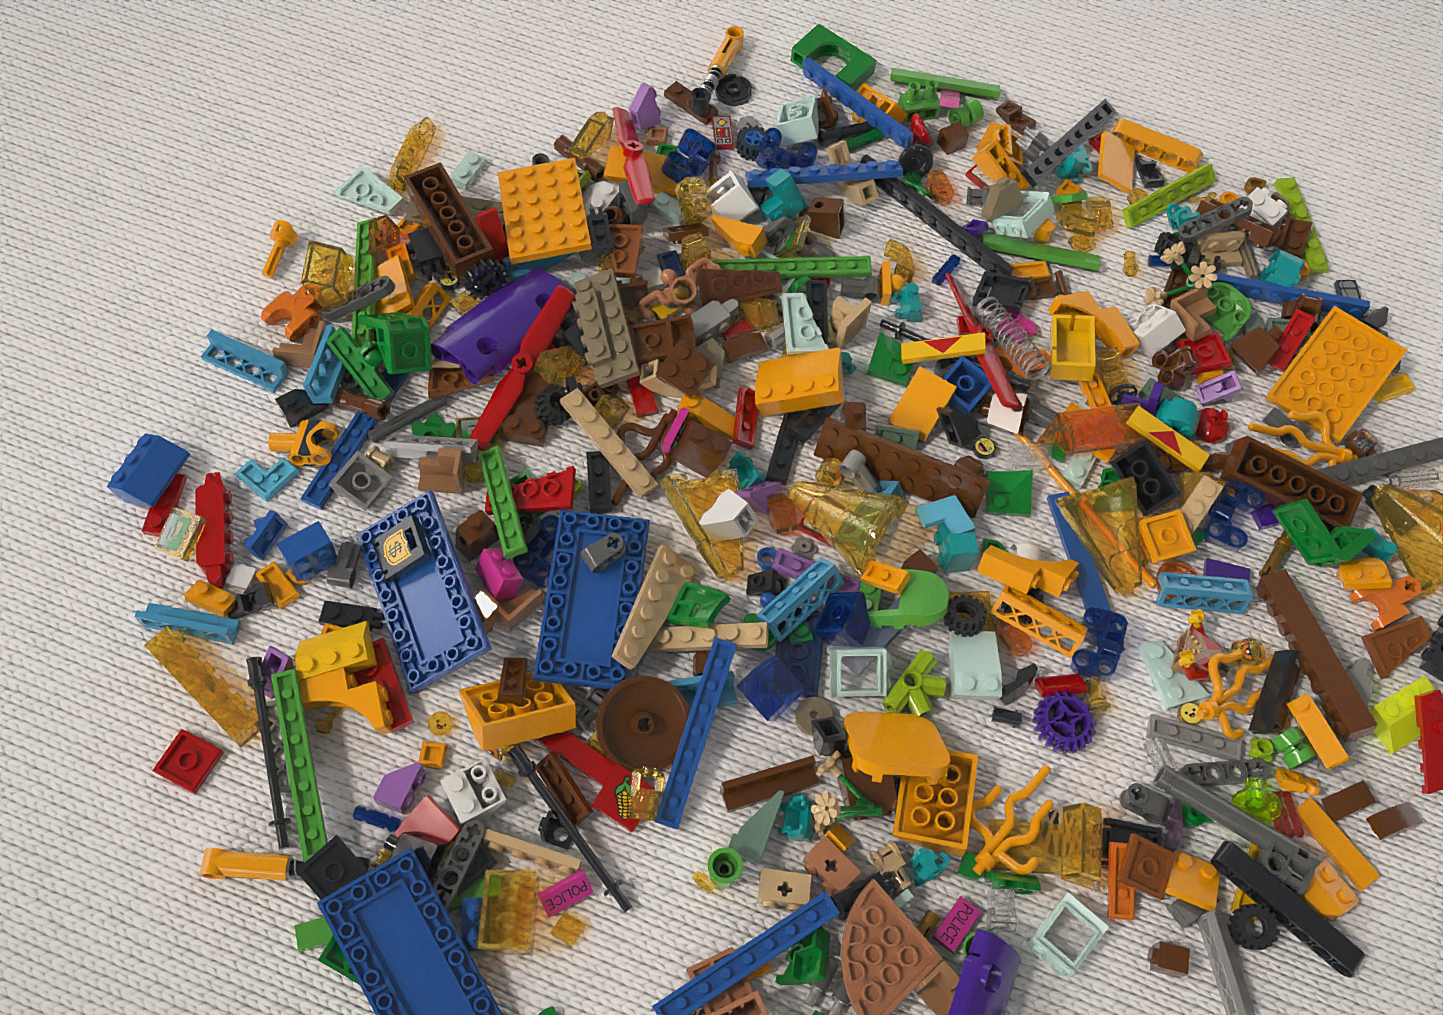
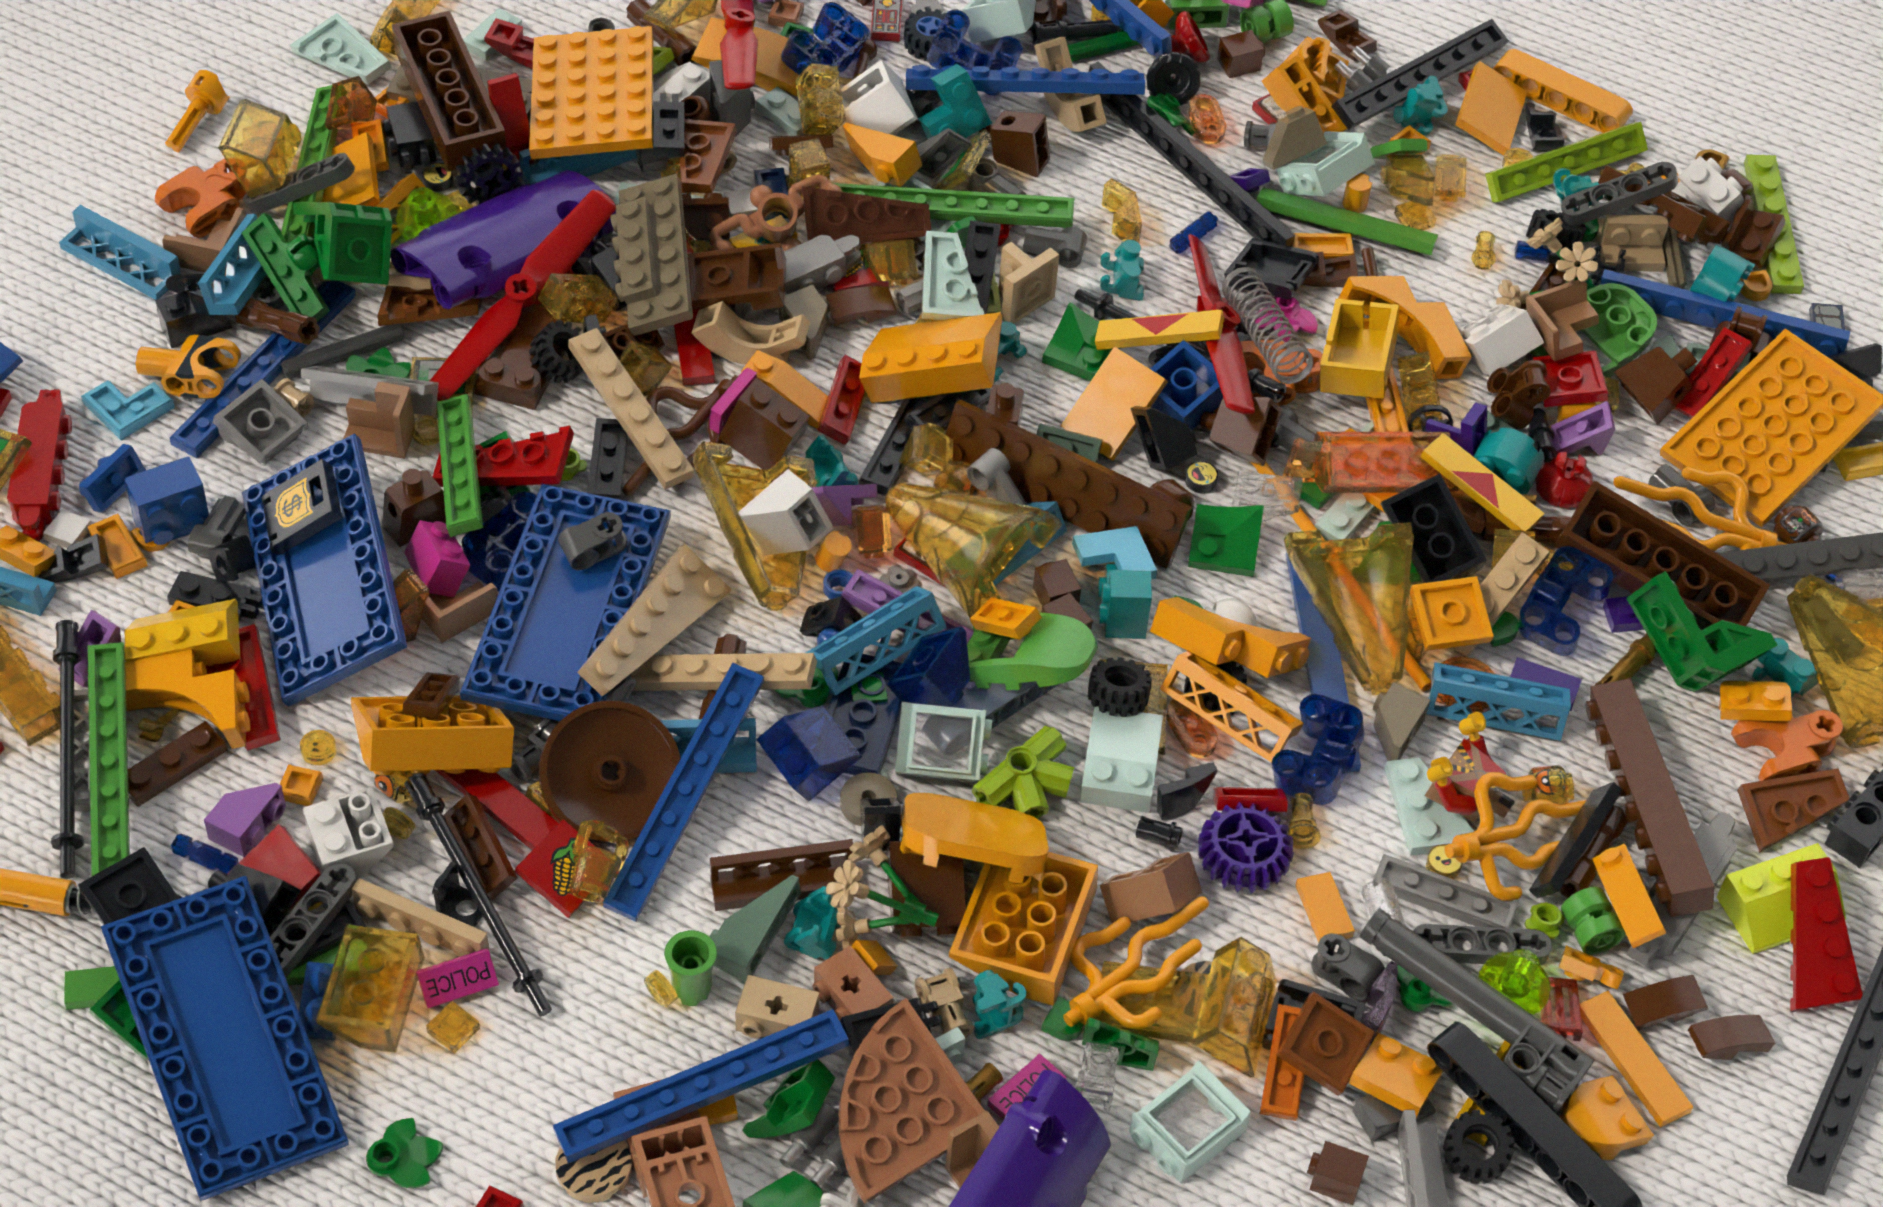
camera: 10 degrees right, 10 degrees down
(292, 380) = (183, 282): none -> black piece
(343, 749) = (174, 762): none -> reddish brown plate
(358, 588) = (231, 558): none -> black bracket
(445, 311) = (421, 211): none -> clear neon green piece
(482, 176) = (510, 42): none -> red slope
(685, 369) = (759, 315): reddish brown plate -> none
(697, 605) = (719, 629): green plate -> none
(759, 534) = (833, 551): none -> light orange piece
(810, 453) = (928, 450): none -> clear yellow slope
(889, 283) = (1099, 240): light orange tile -> none
(907, 541) = (1054, 581): none -> reddish brown brick
(1011, 765) = (1153, 890): none -> medium nougat panel
(1121, 758) = (1324, 906): none -> light orange tile
(1142, 614) = (1398, 719): none -> dark tan slope
(1192, 393) = (1542, 434): none -> black pin

